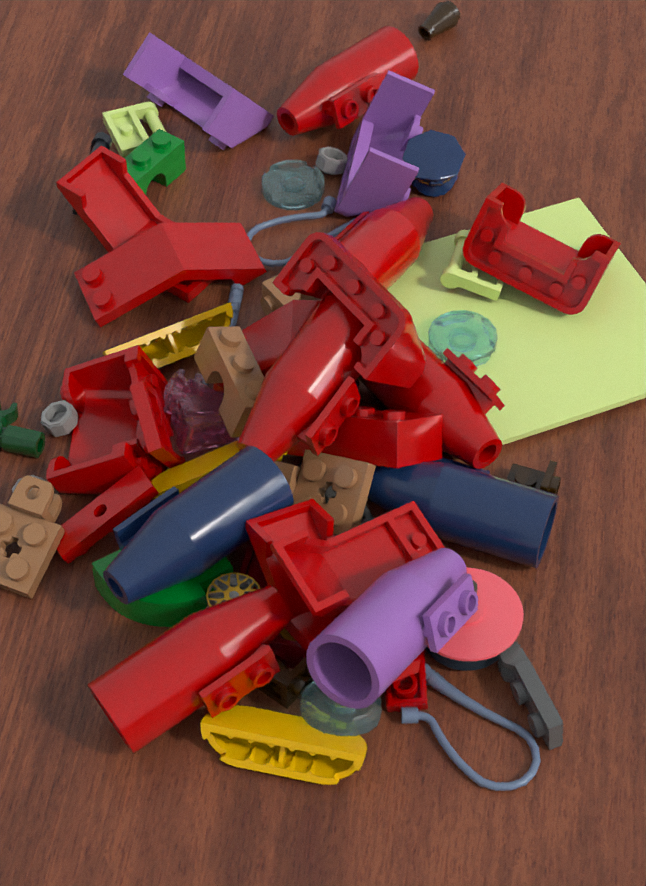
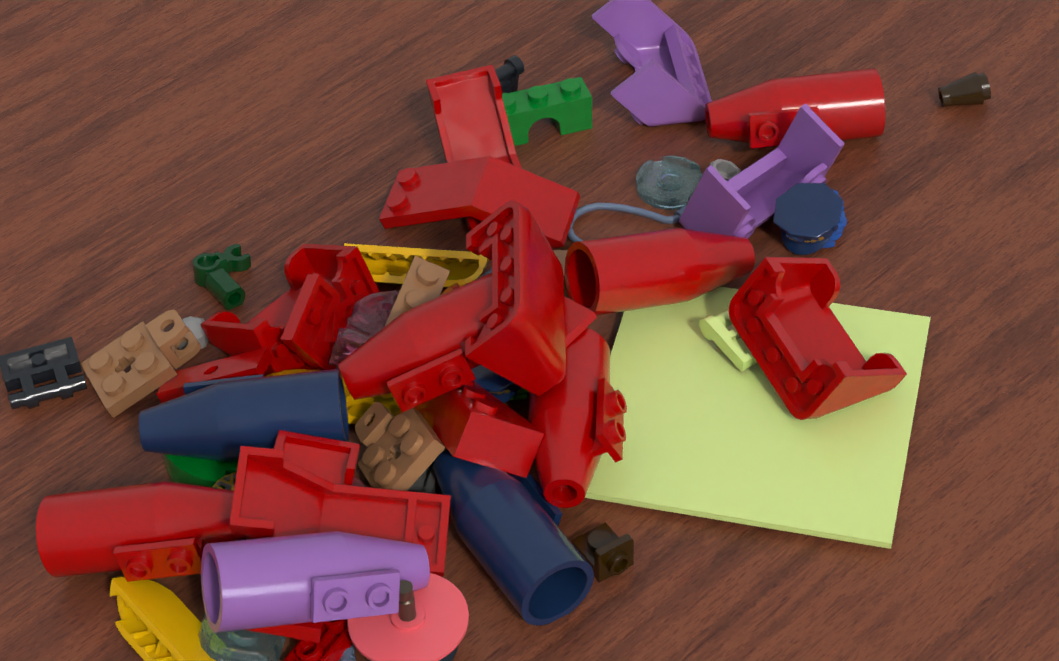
camera: 40 degrees right, 5 degrees down
(59, 418) = (269, 284): light grey tile -> none
(126, 127) = (574, 62): yellowish green plate -> none
(463, 333) = (670, 388): clear light blue tile -> none

